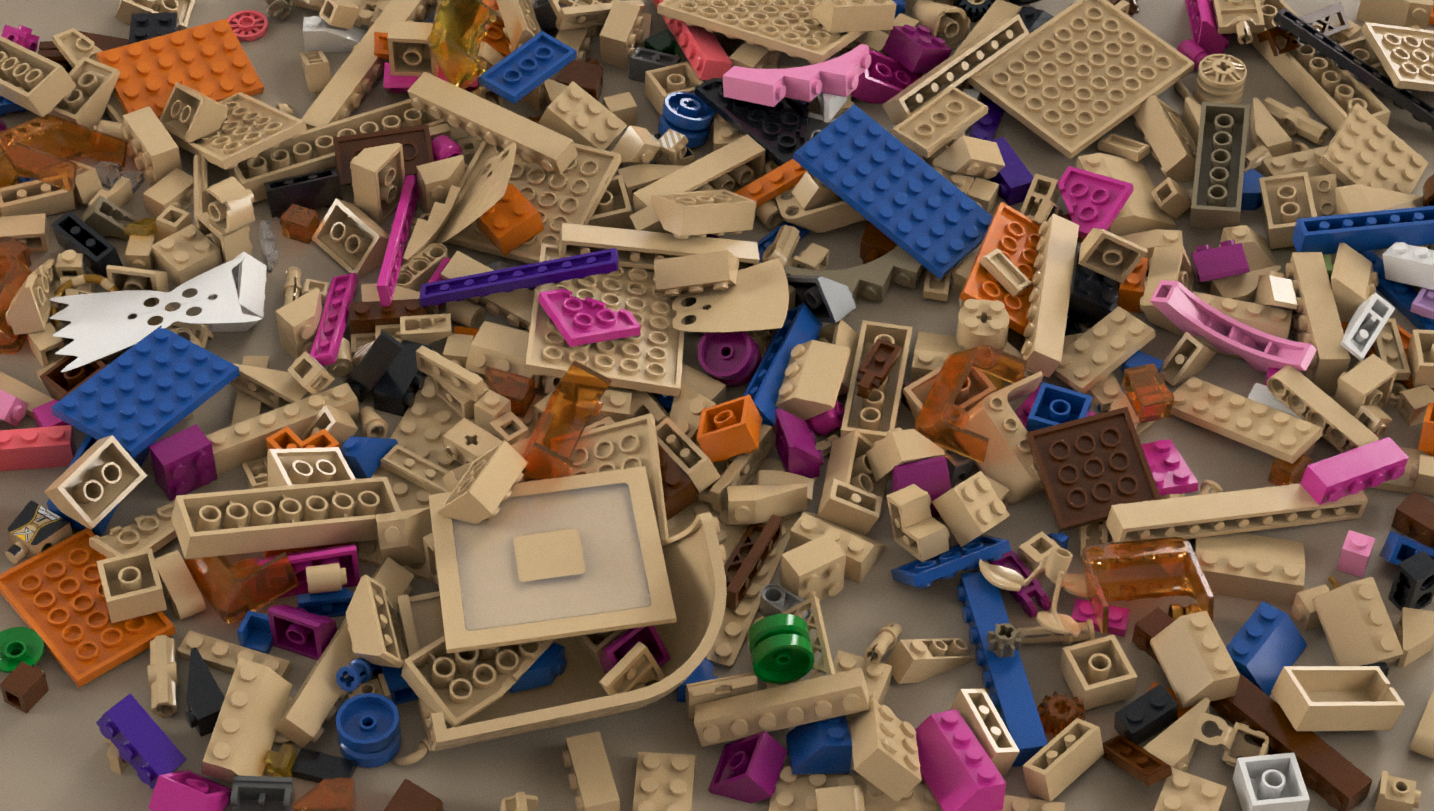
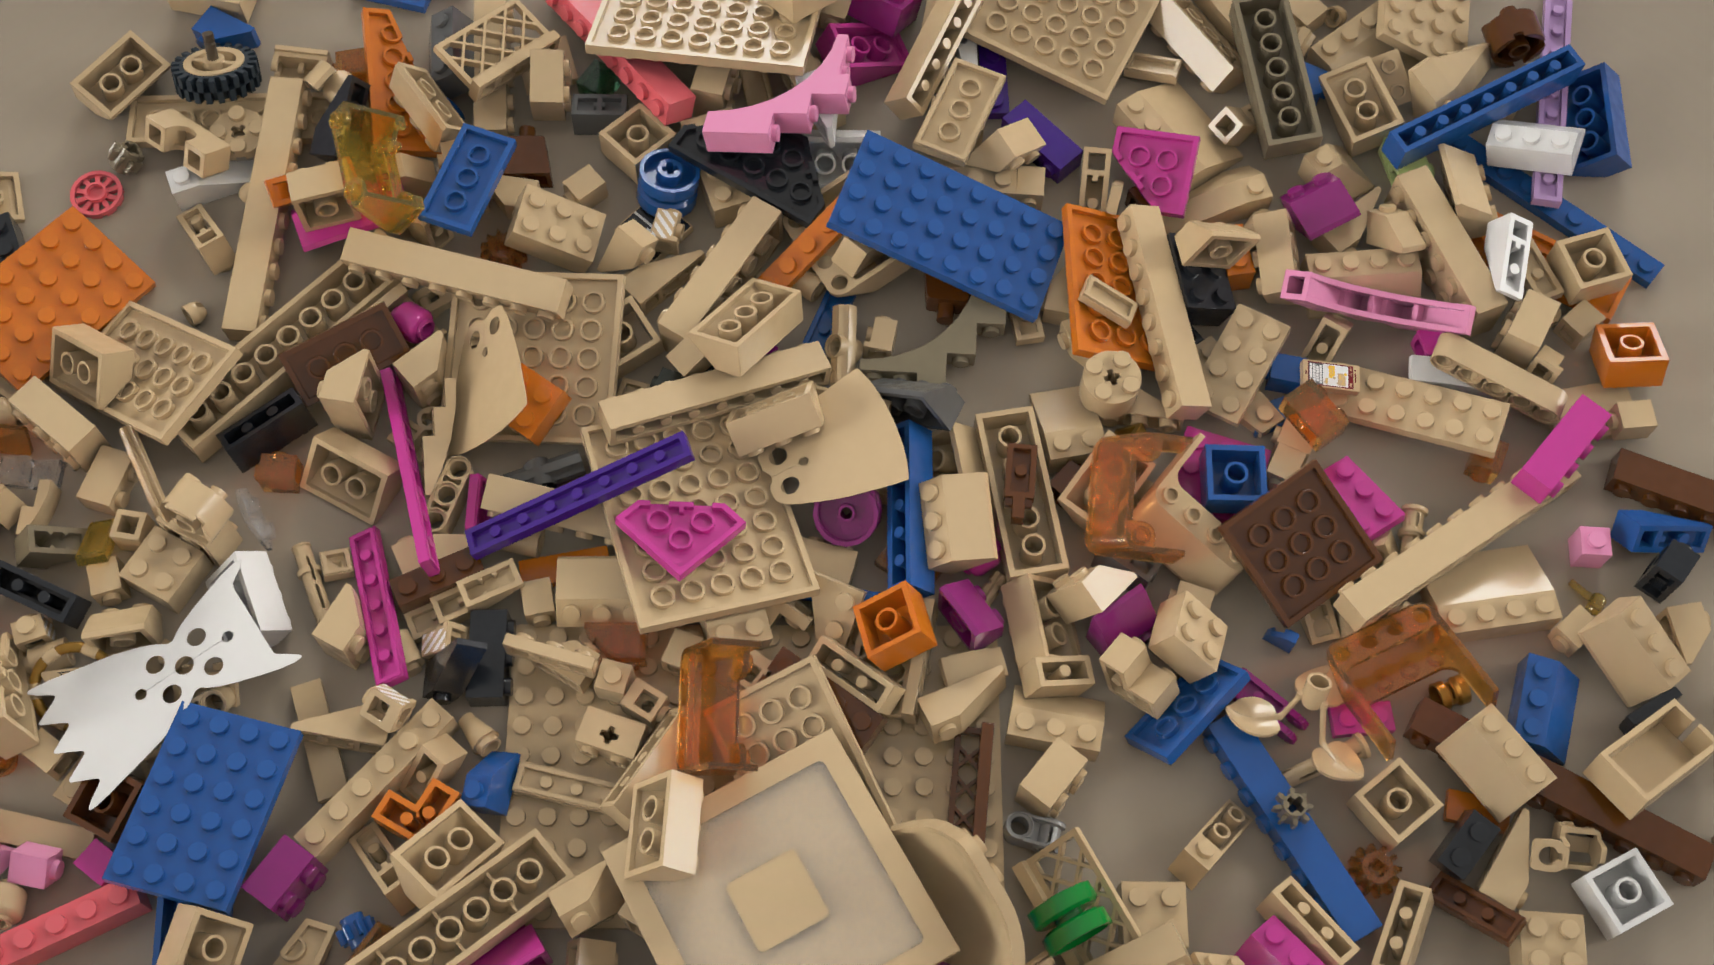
camera: 20 degrees left, 20 degrees up
(885, 640) = (1160, 841): tan pin -> none
(1035, 550) = (1281, 654): tan brick -> none
(1178, 376) = (1332, 376): none -> tile

